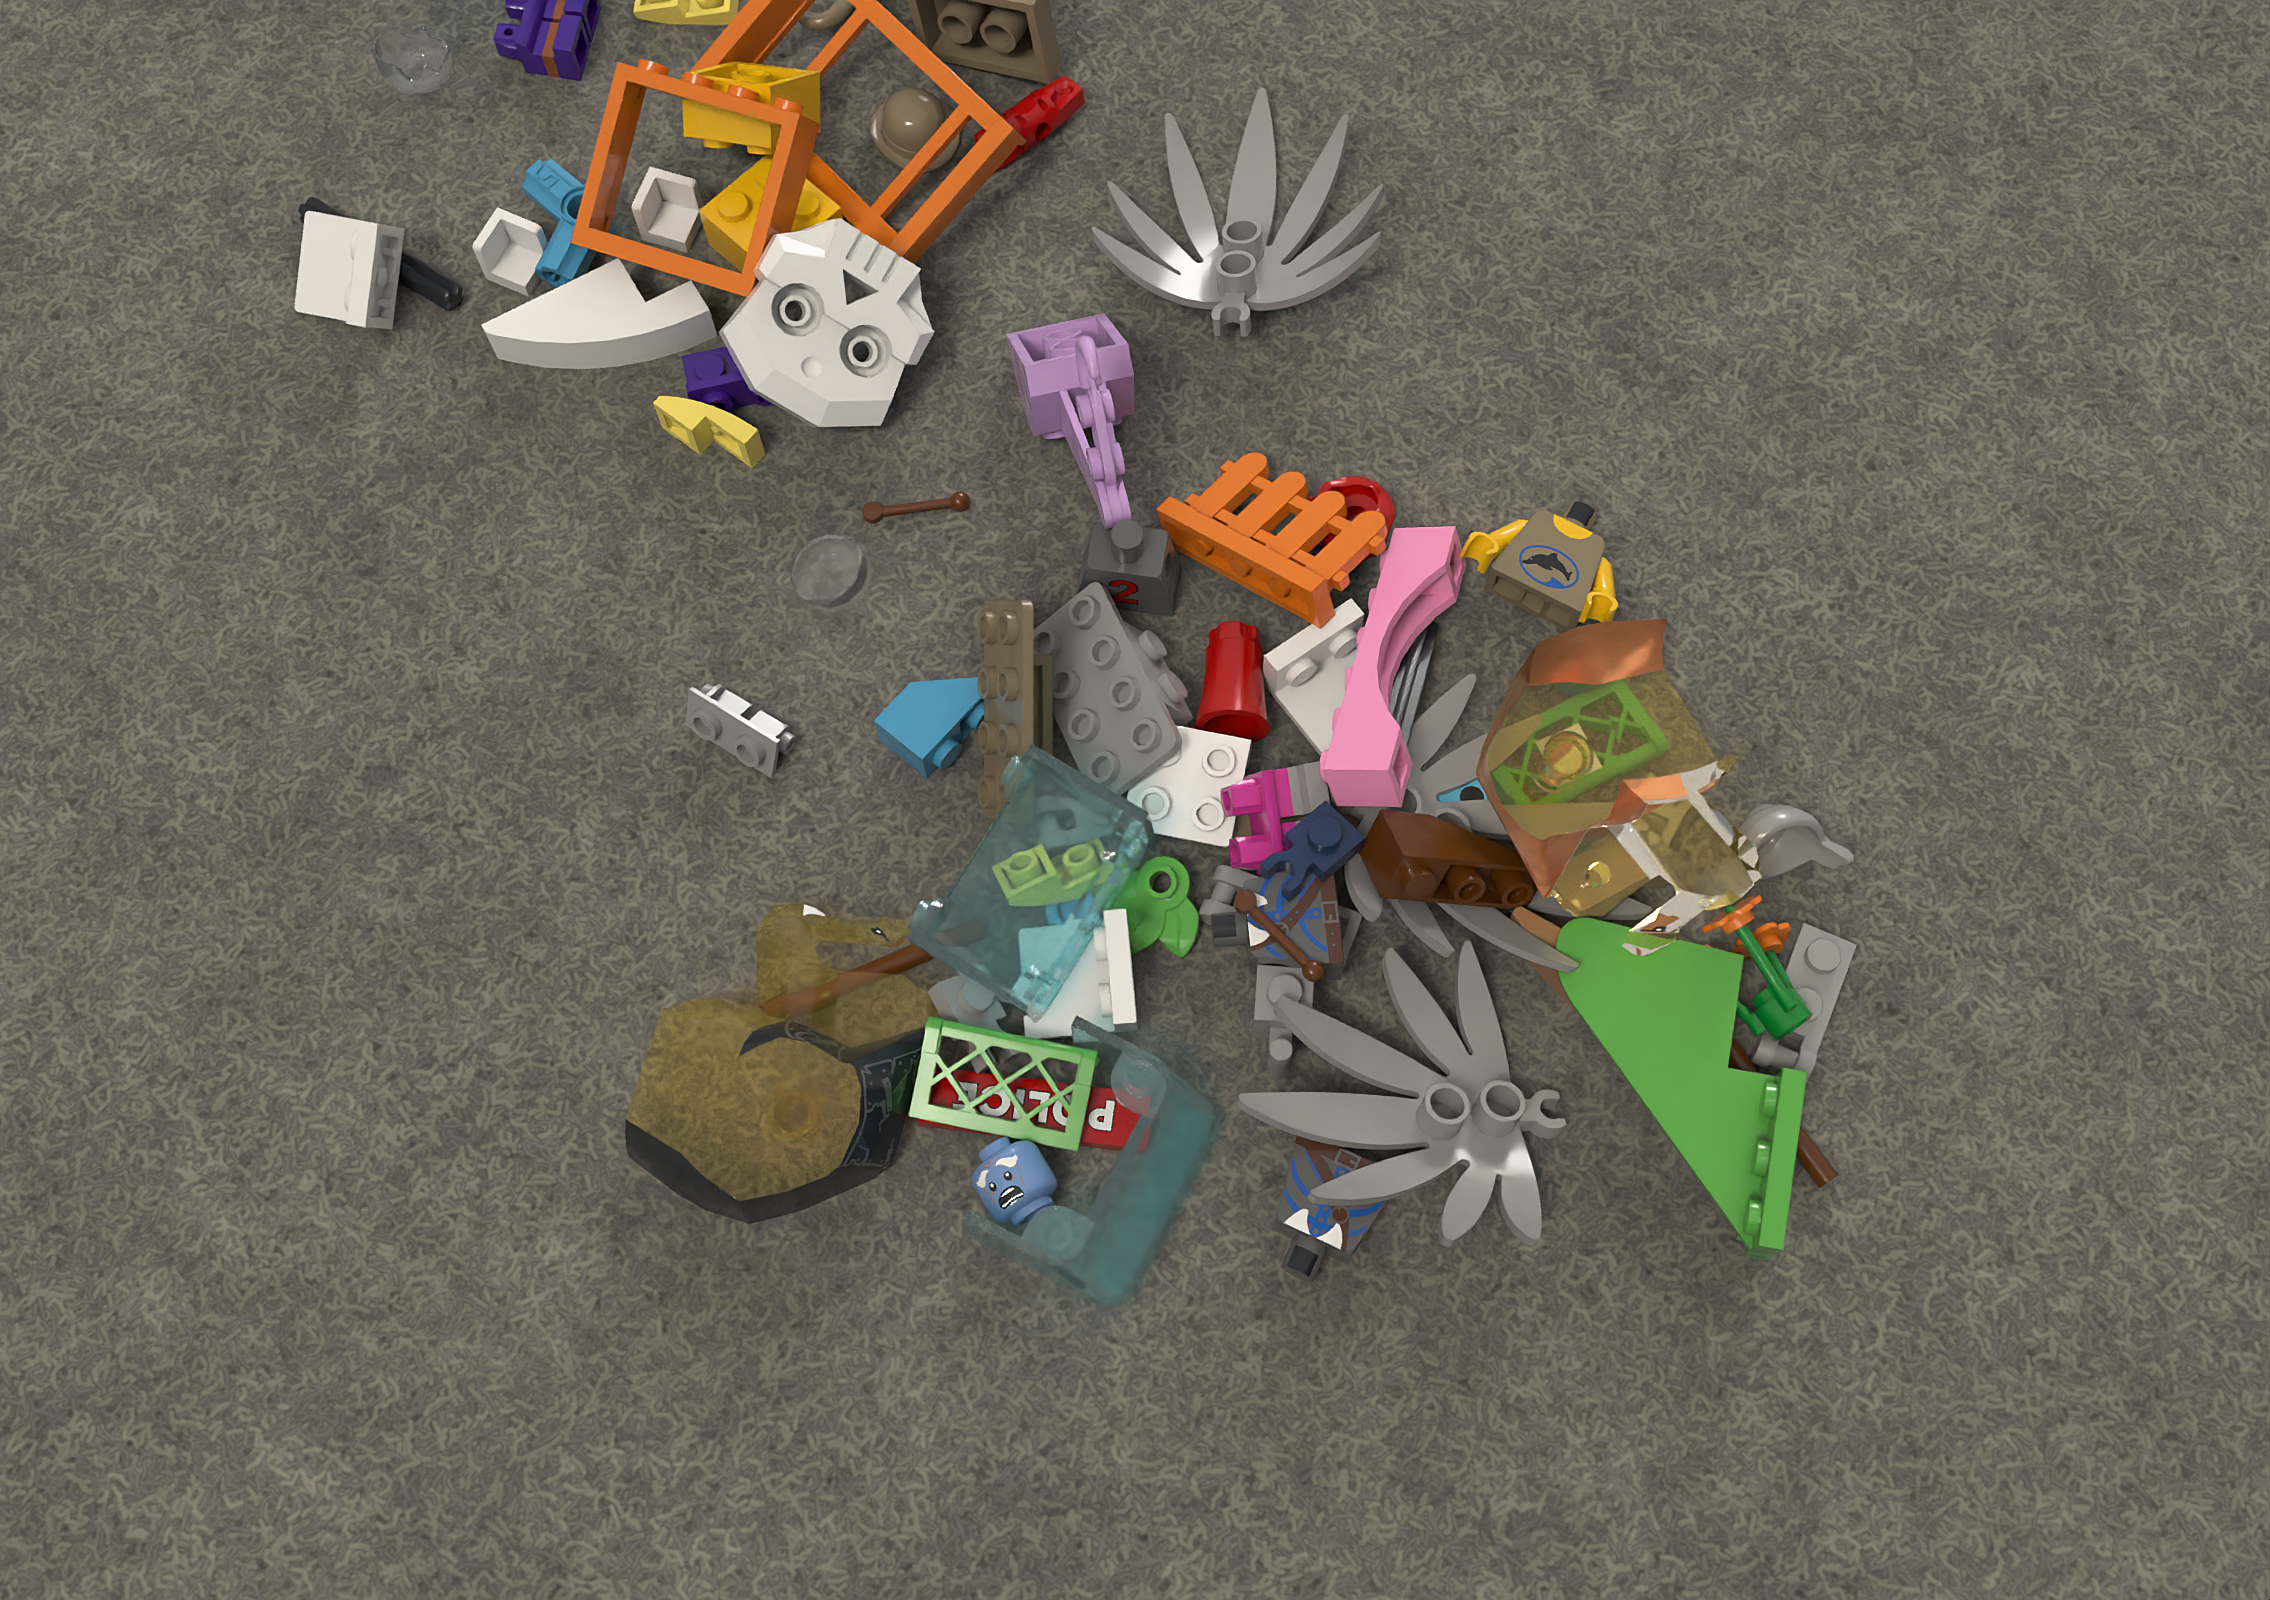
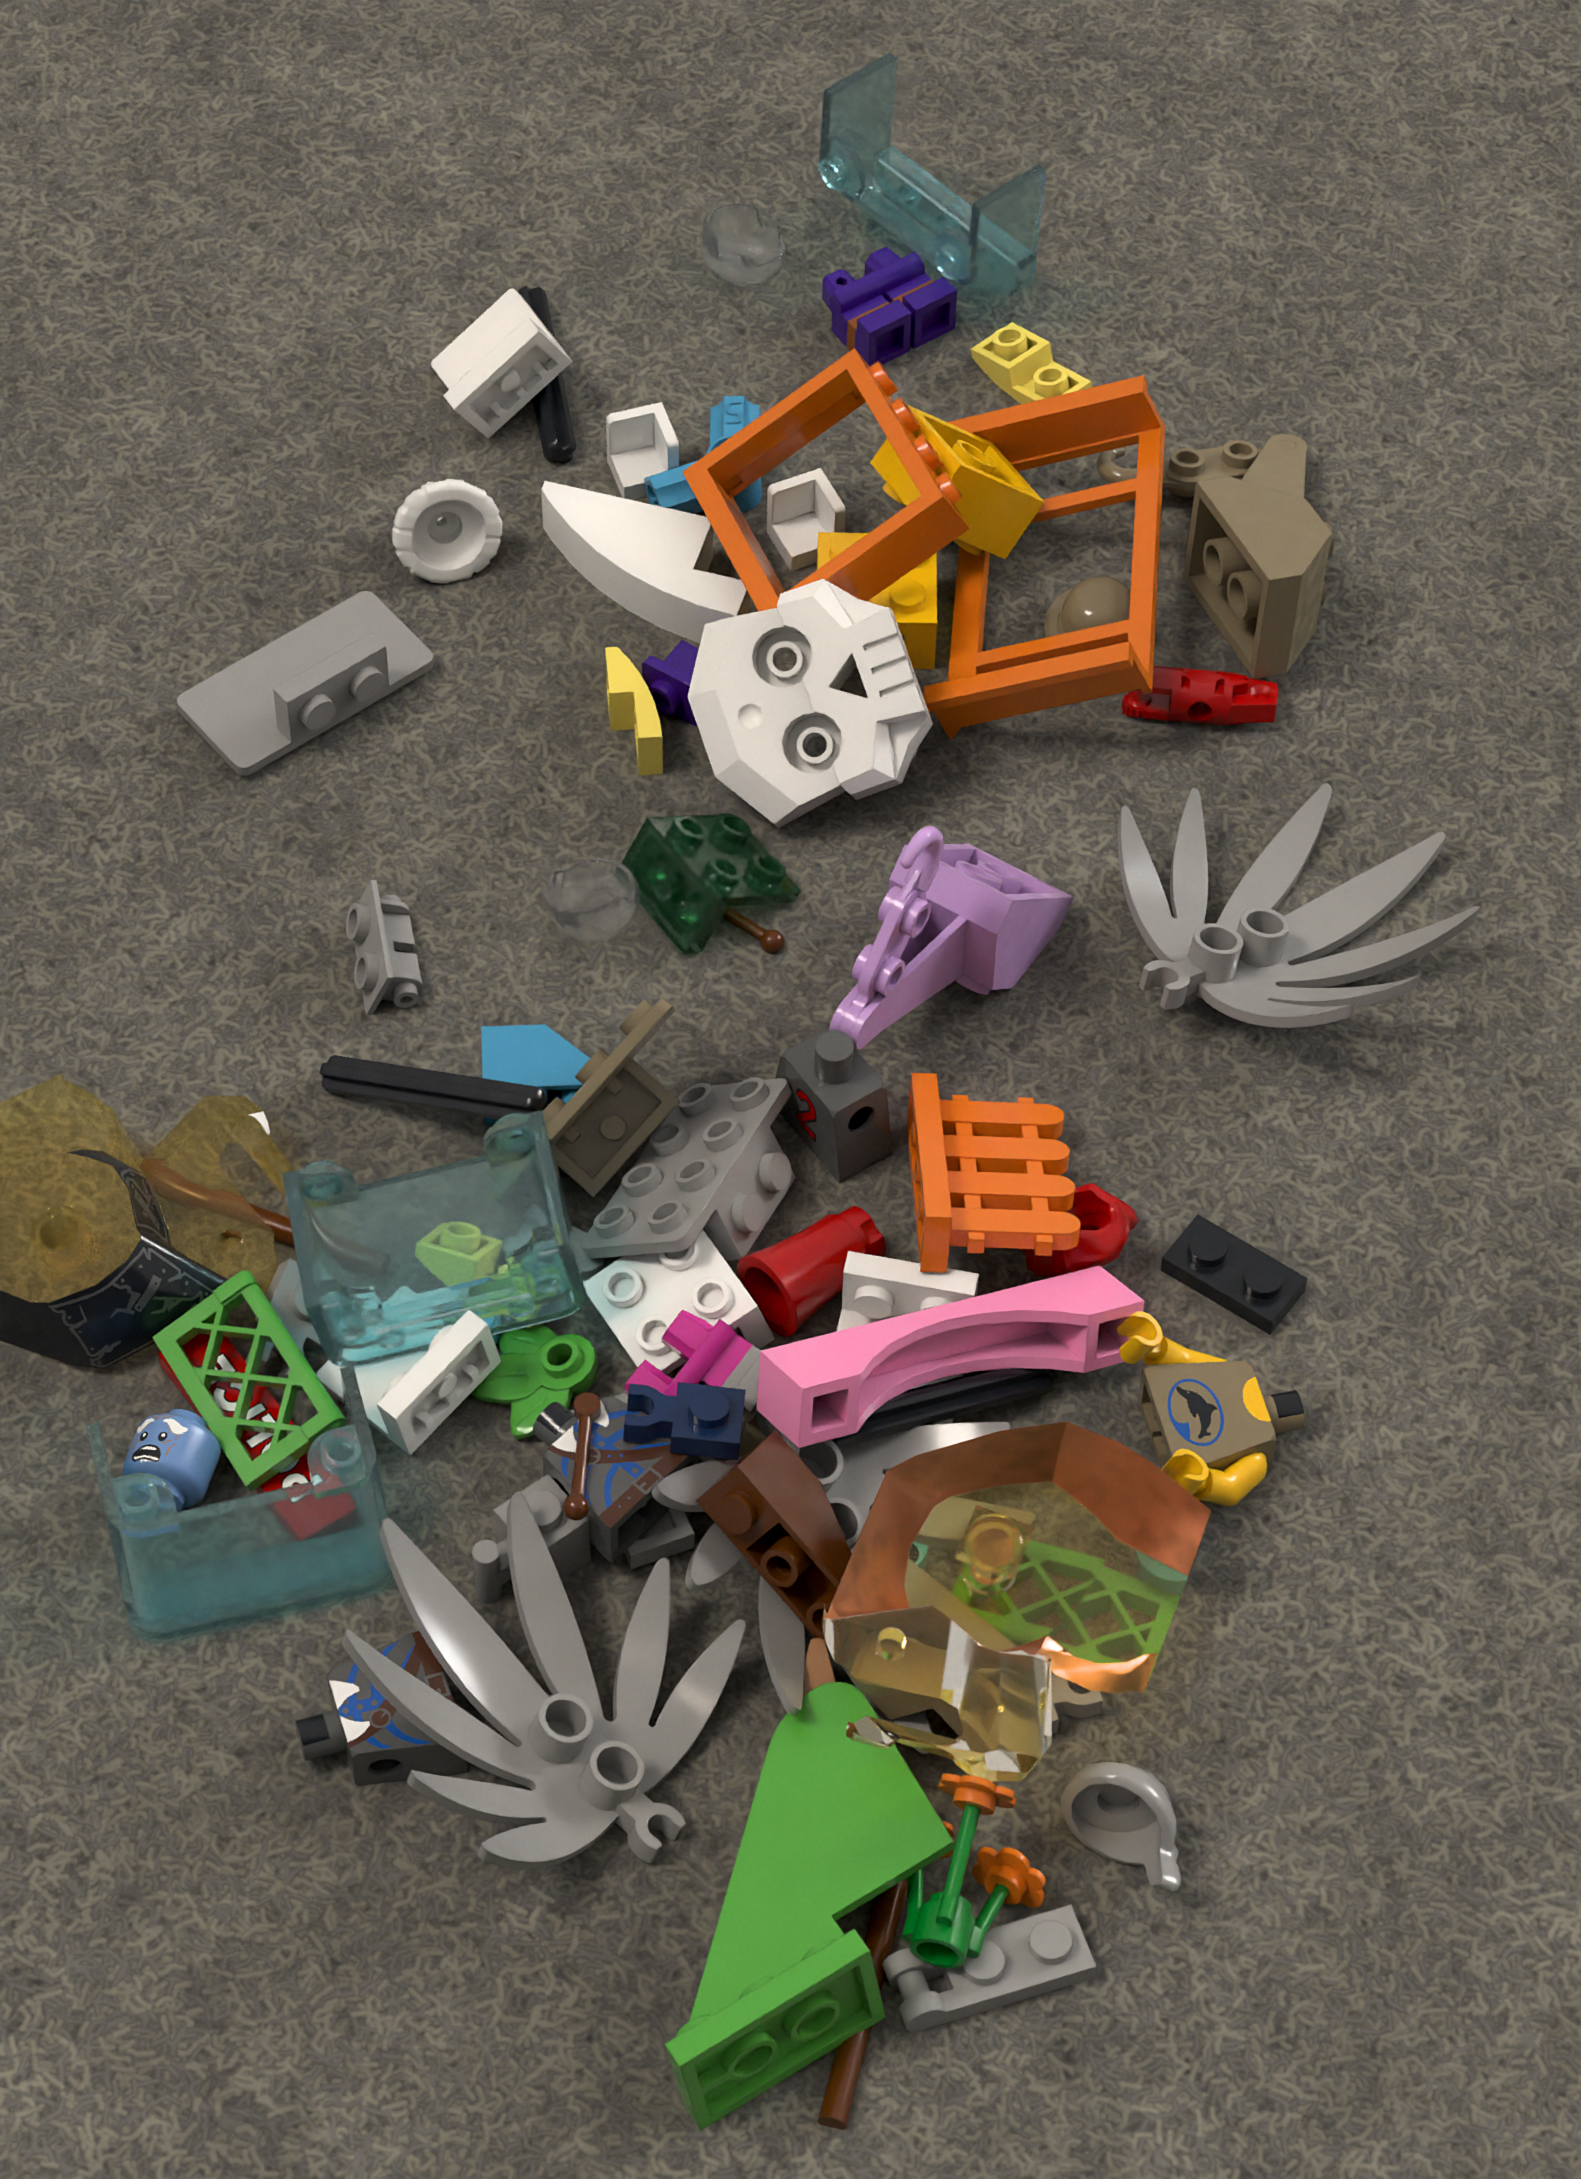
camera: 45 degrees right, 15 degrees down
(451, 412) = (447, 531): none -> white hair
(474, 597) = (305, 682): none -> light grey bracket
(877, 497) = (698, 869): none -> clear green bracket
(890, 788) = (429, 1088): none -> black axle
(1450, 463) = (1233, 1274): none -> black plate

